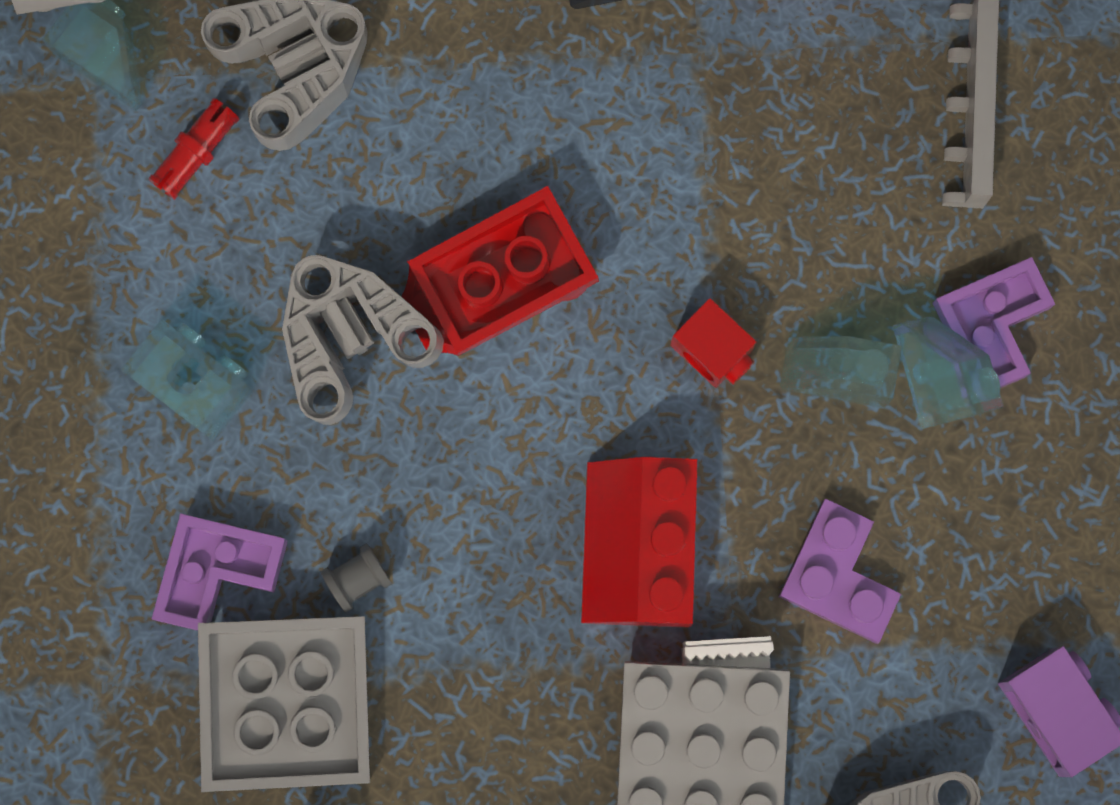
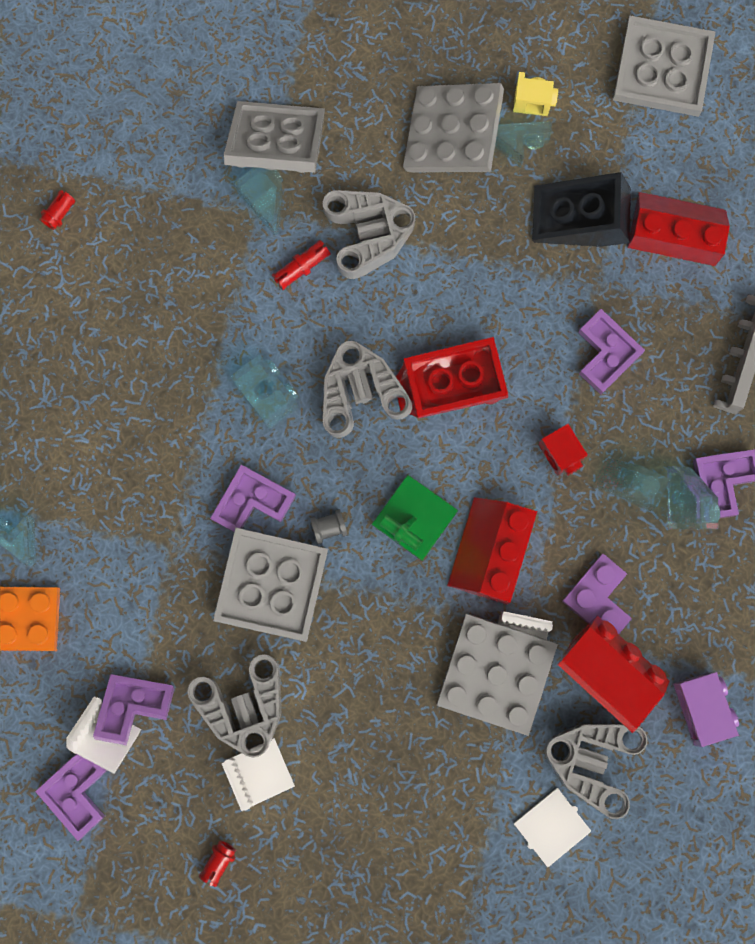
camera: 15 degrees right, 0 degrees up
(497, 523) = (415, 517): none -> green plate
(757, 155) = (615, 350): none -> medium lavender plate
(896, 694) = (614, 673): none -> red slope

